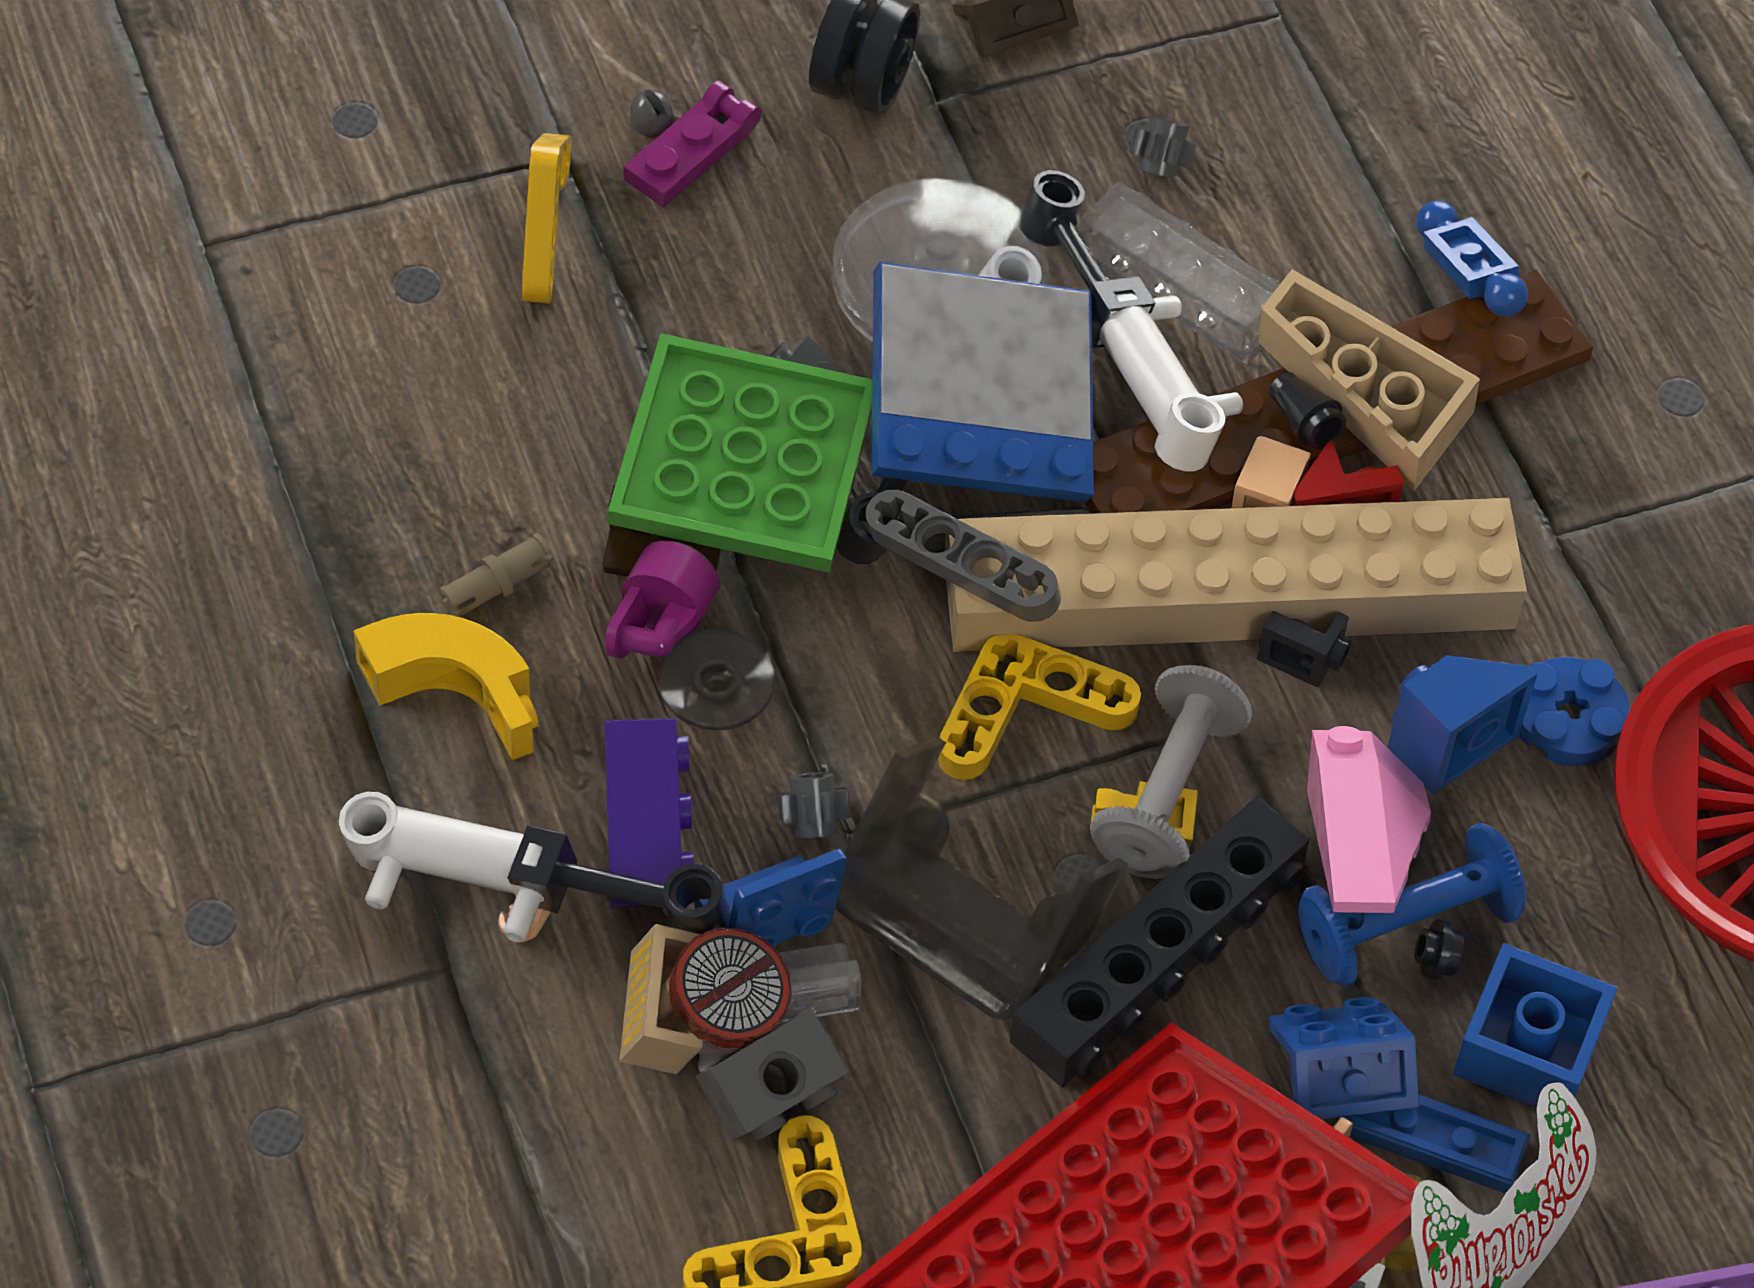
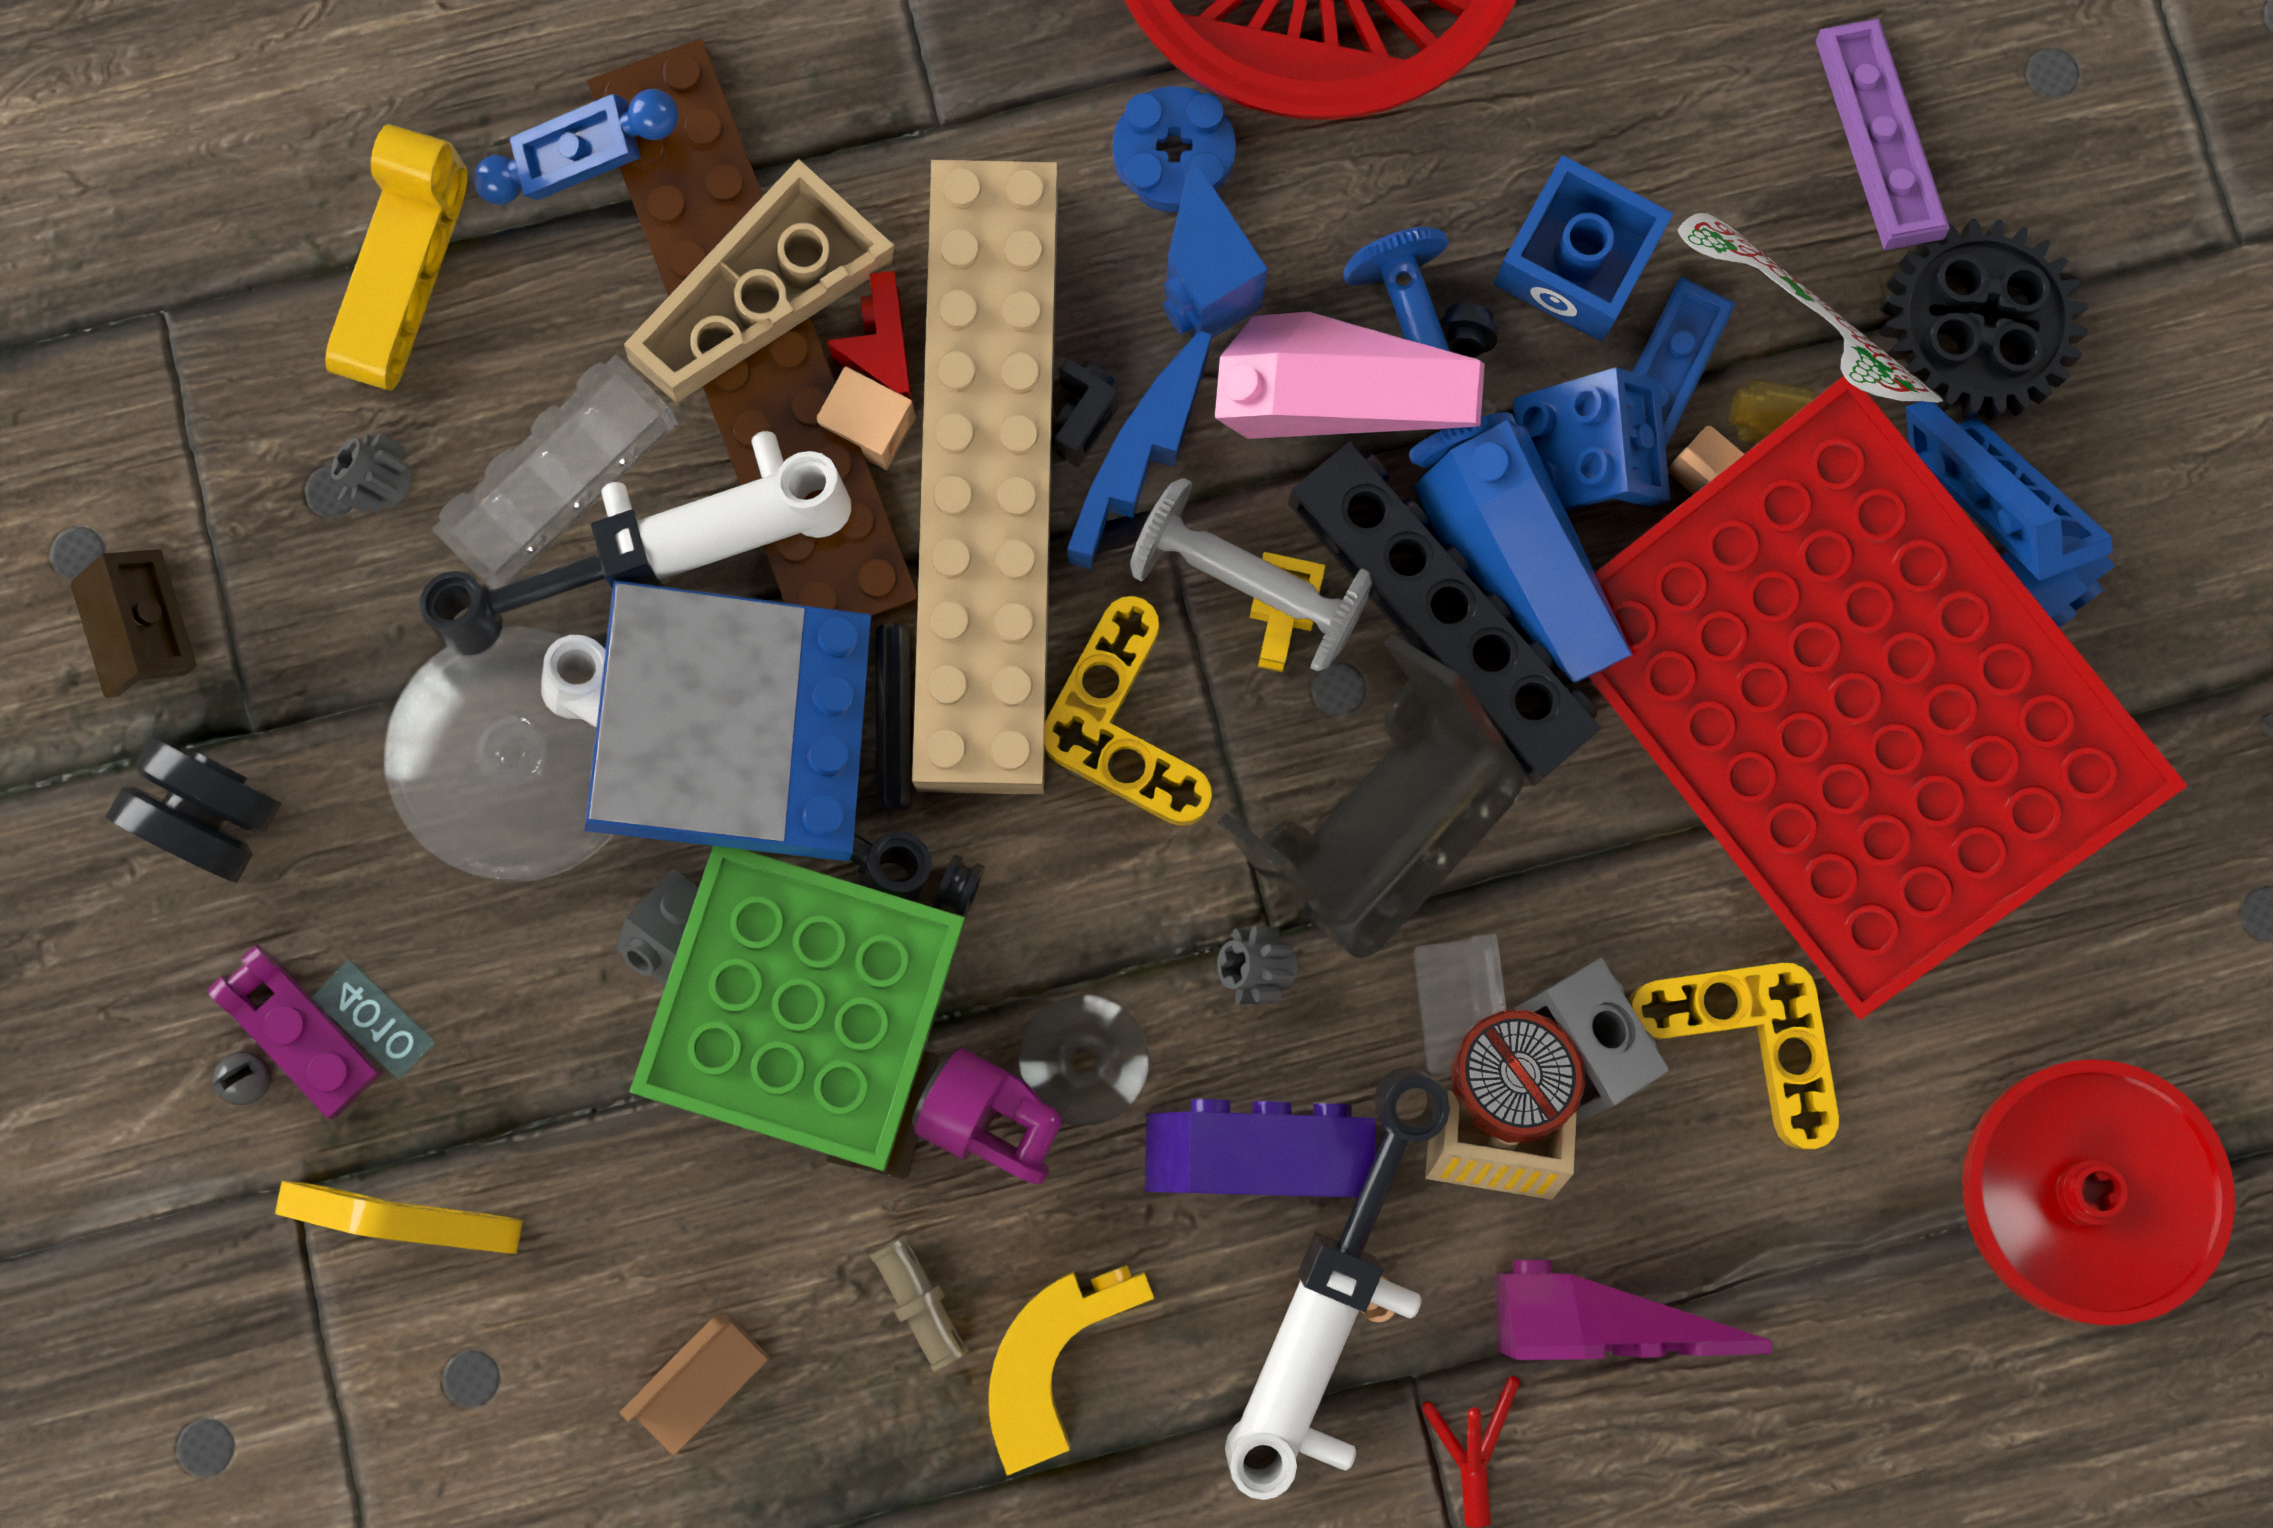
camera: 85 degrees left, 25 degrees up
(368, 1010) = (1479, 1450): none -> red plant
(424, 422) = (696, 1383): none -> medium nougat panel
(514, 1086) = (1574, 1318): none -> magenta wedge
(707, 197) = (373, 1019): none -> clear light blue sticker
(786, 897) = (1378, 1018): blue bracket -> none
(861, 581) = (959, 886): none -> black bush
(966, 550) = (987, 774): dark grey beam -> none
(1239, 993) = (1513, 531): none -> blue wedge
(1280, 688) = (1149, 435): none -> blue slope
(1308, 411) = (786, 361): black cone -> none
(1351, 152) = (400, 256): none -> yellow beam

